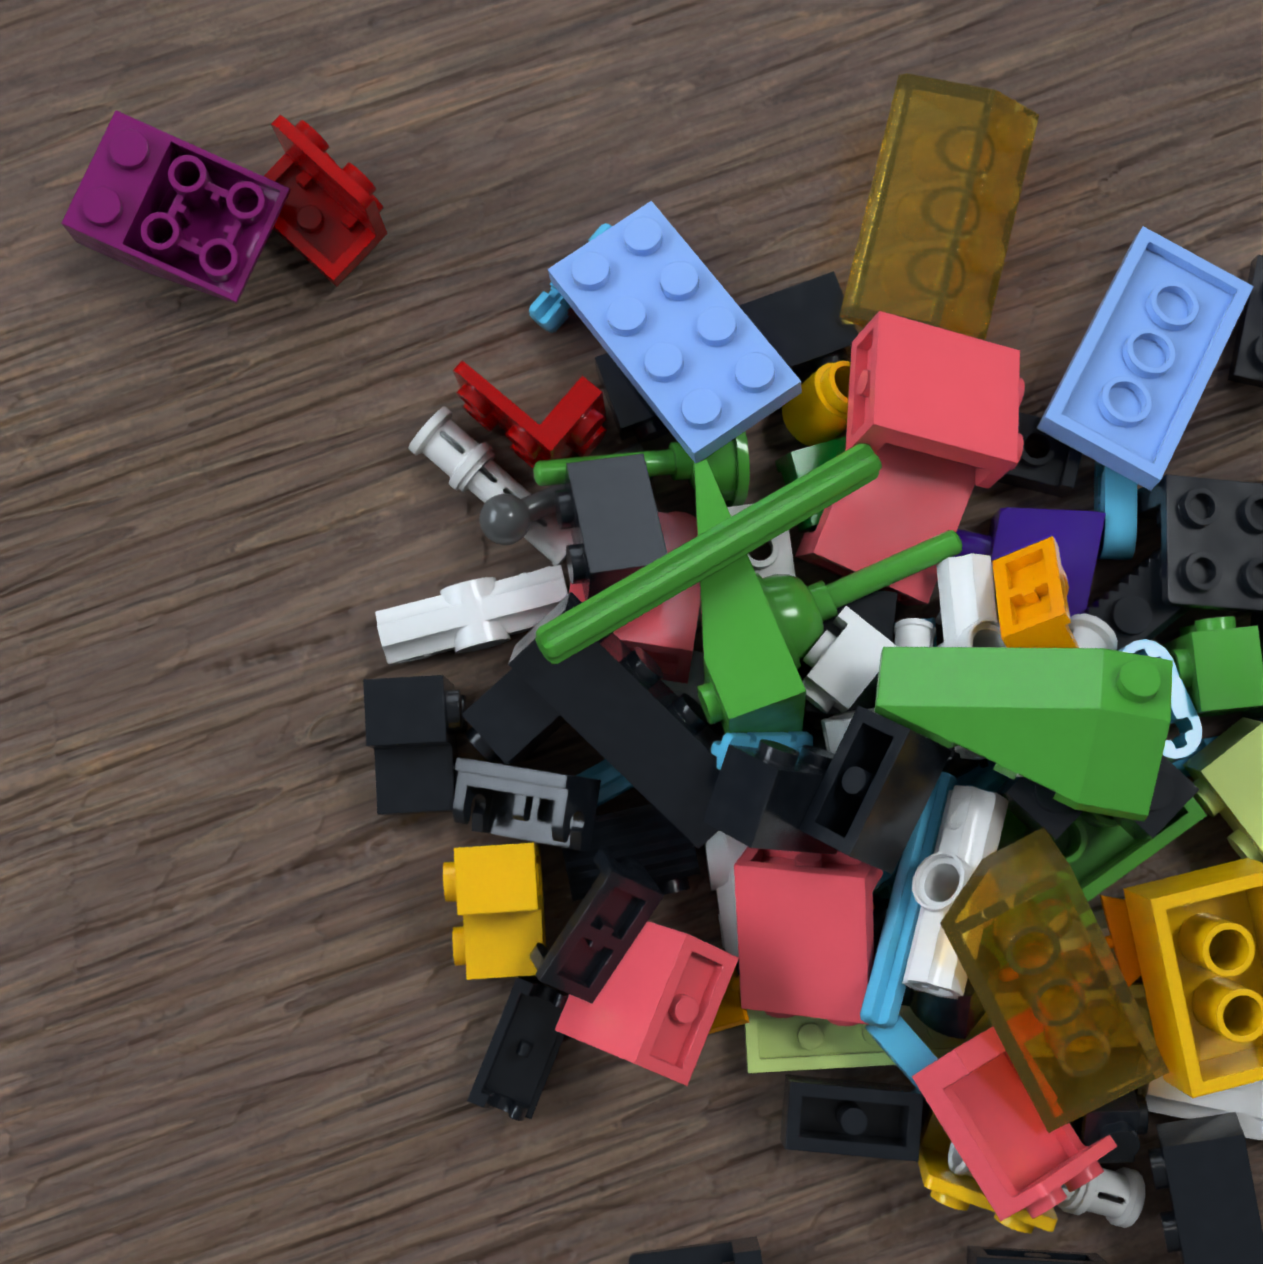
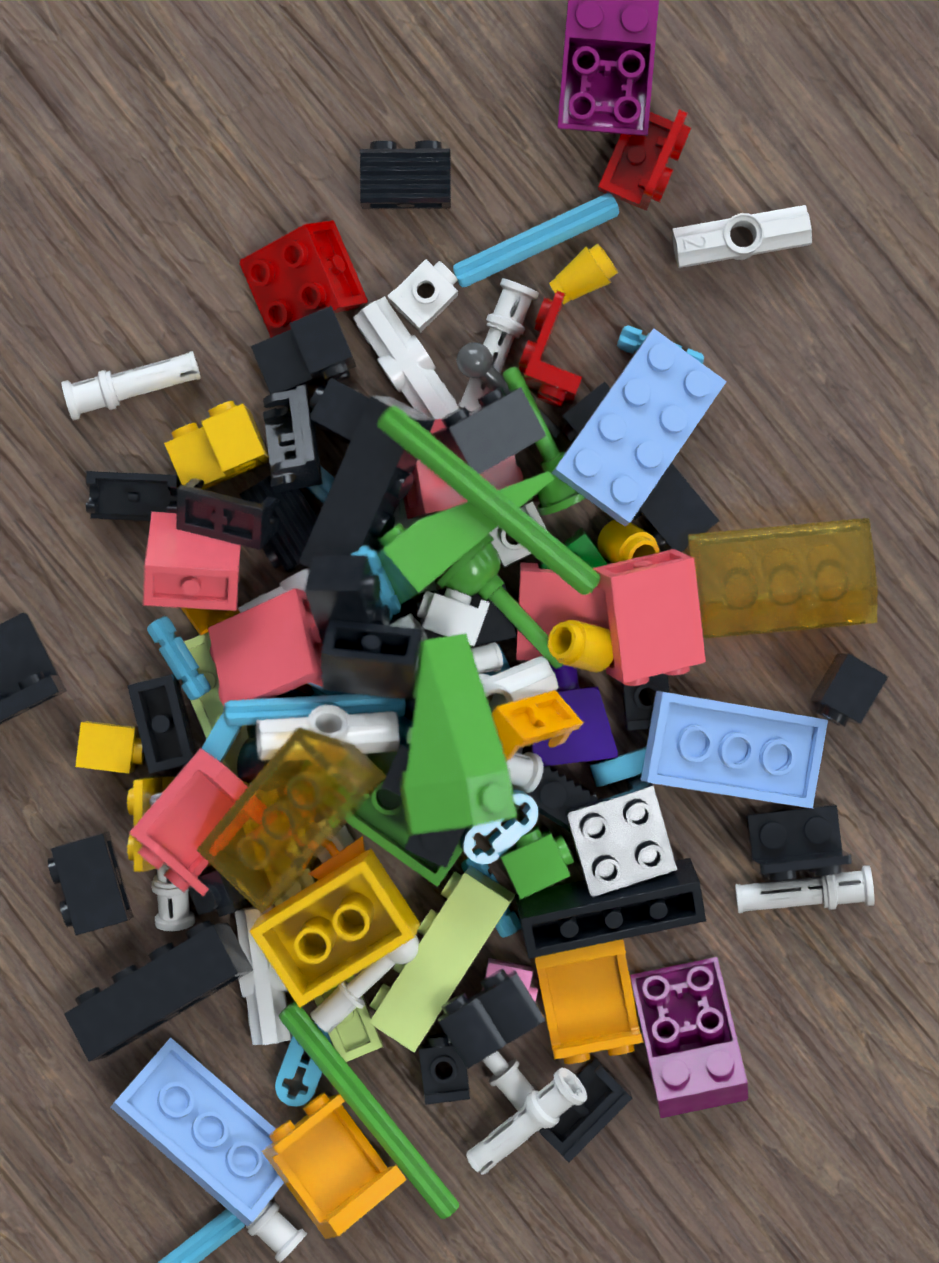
camera: 70 degrees right, 5 degrees up
(226, 528) = (405, 176): none -> black brick
(308, 715) = (302, 275): none -> red bracket
(365, 1030) = (110, 389): none -> white pin
(373, 389) = (536, 240): none -> medium azure axle
(406, 576) = (423, 311): none -> white brick
(440, 337) = (584, 274): none -> yellow cone
(470, 84) = (770, 232): none -> white piece
(768, 1063) = (178, 658): none -> medium azure axle
(856, 1204) = (109, 747): none -> yellow brick
(945, 503) = (581, 645): none -> yellow brick
(1117, 180) = (848, 690): none -> black brick

